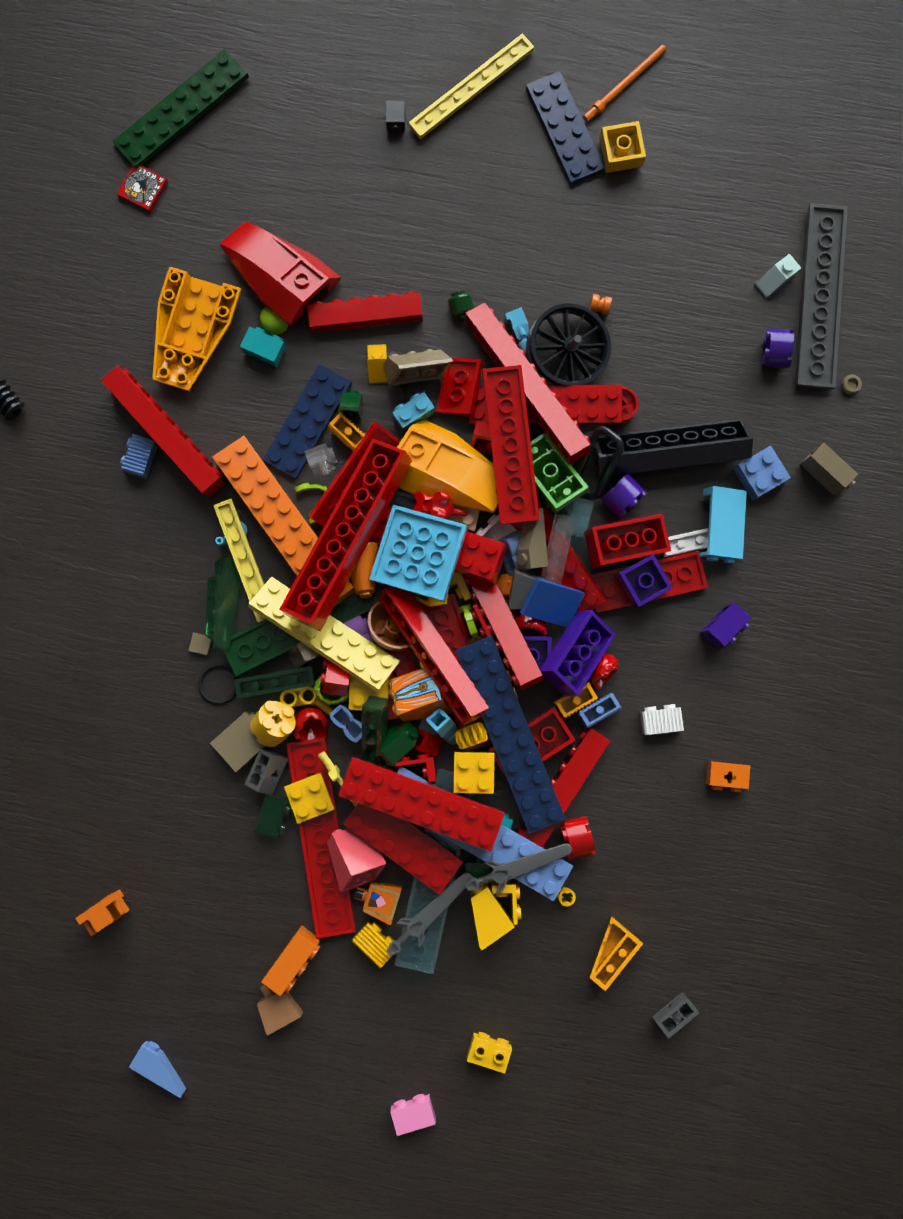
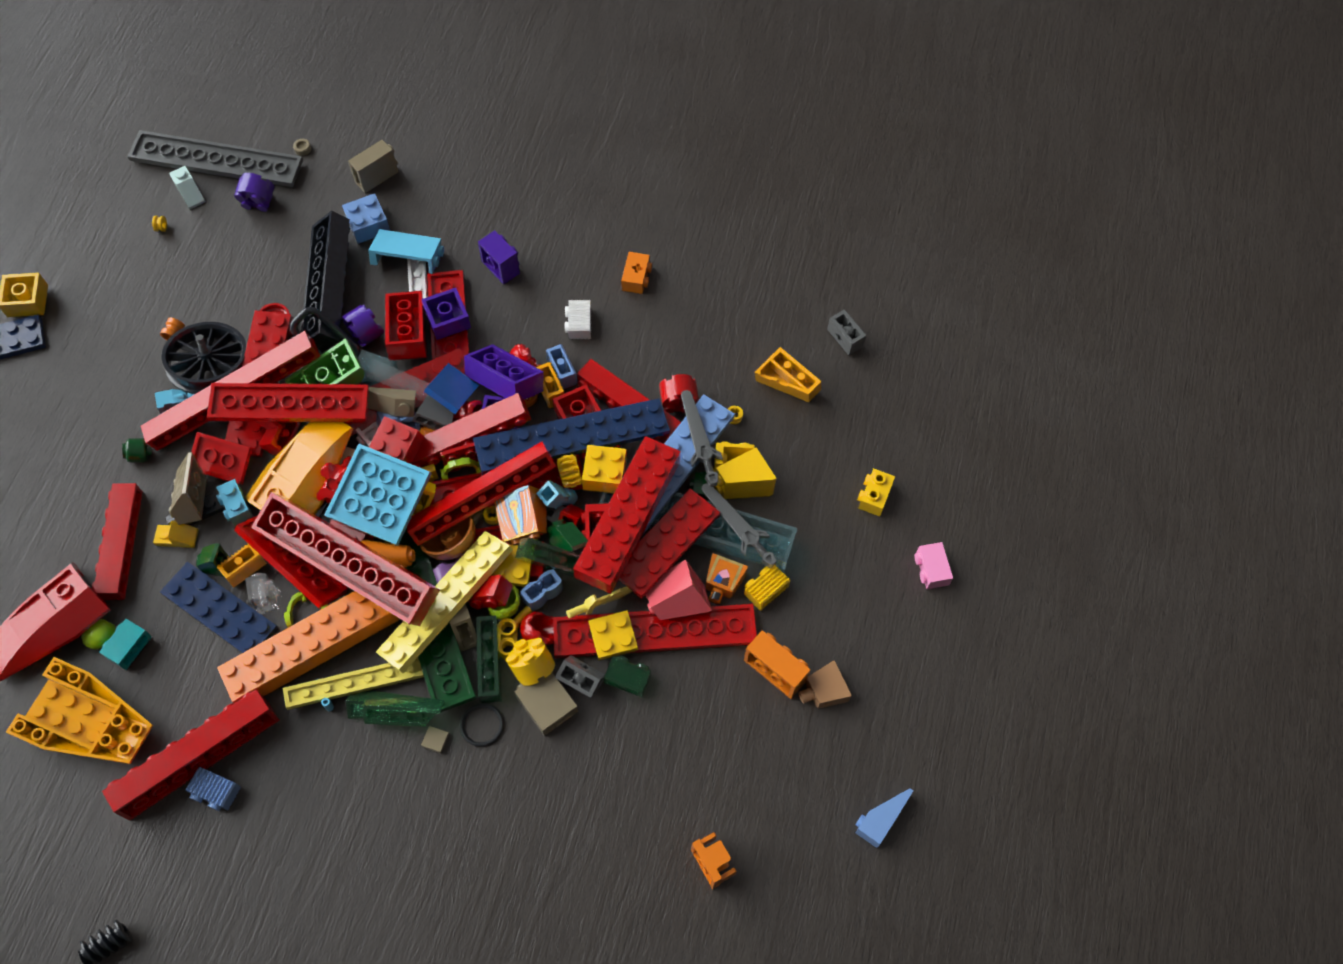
camera: 85 degrees left, 20 degrees down
(729, 258) = (159, 223): none -> yellow bush

